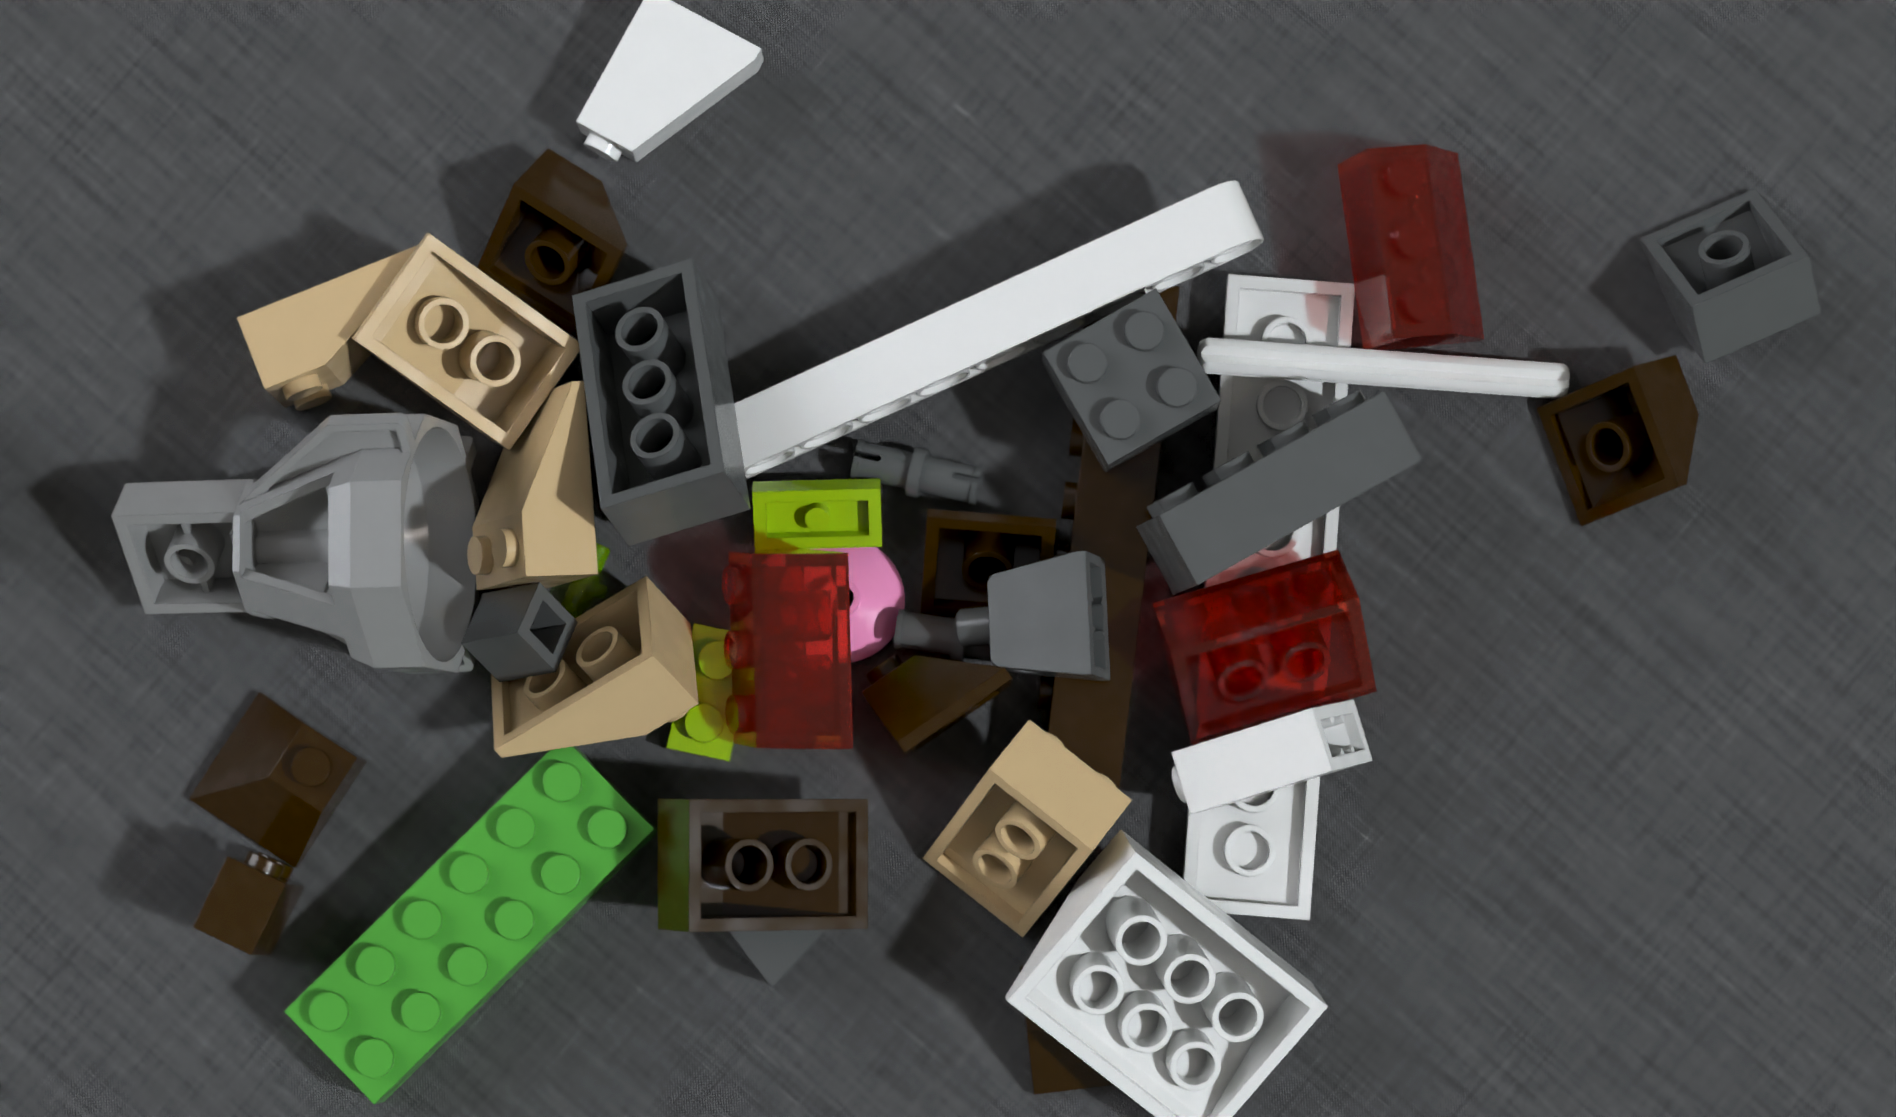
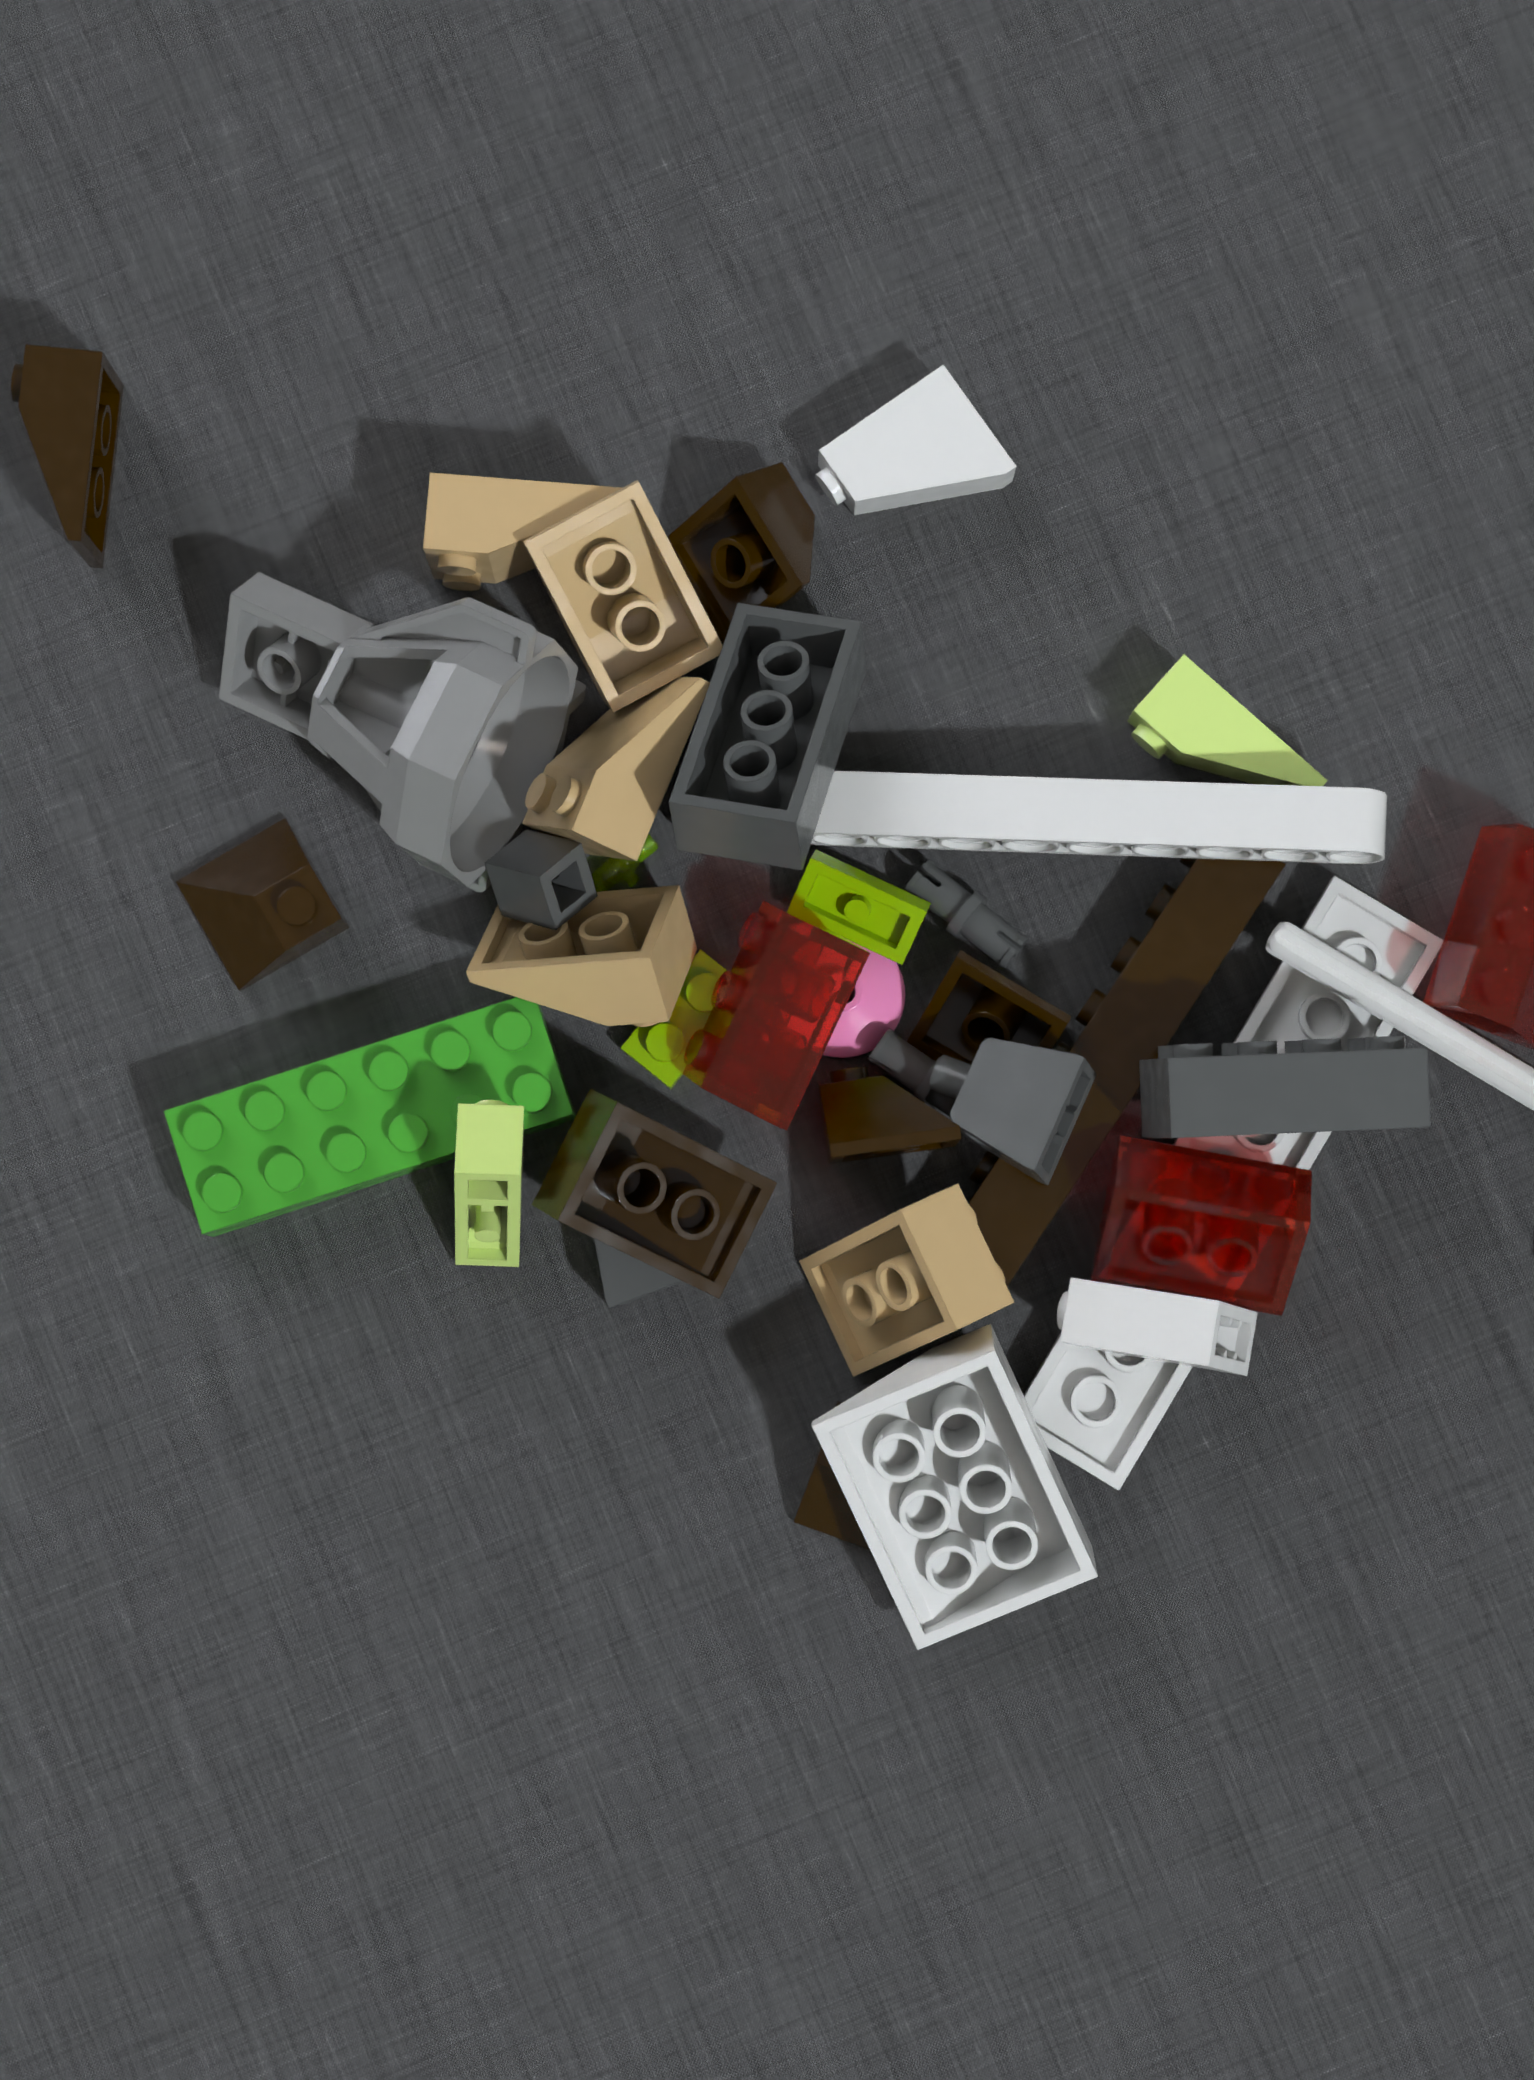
camera: 25 degrees right, 0 degrees up
(250, 903) = (181, 1000): dark brown brick -> none
(609, 929) = (488, 1183): none -> yellowish green slope
(1053, 199) = (1211, 731): none -> yellowish green slope
(1130, 380) = (1200, 925): dark grey brick -> none

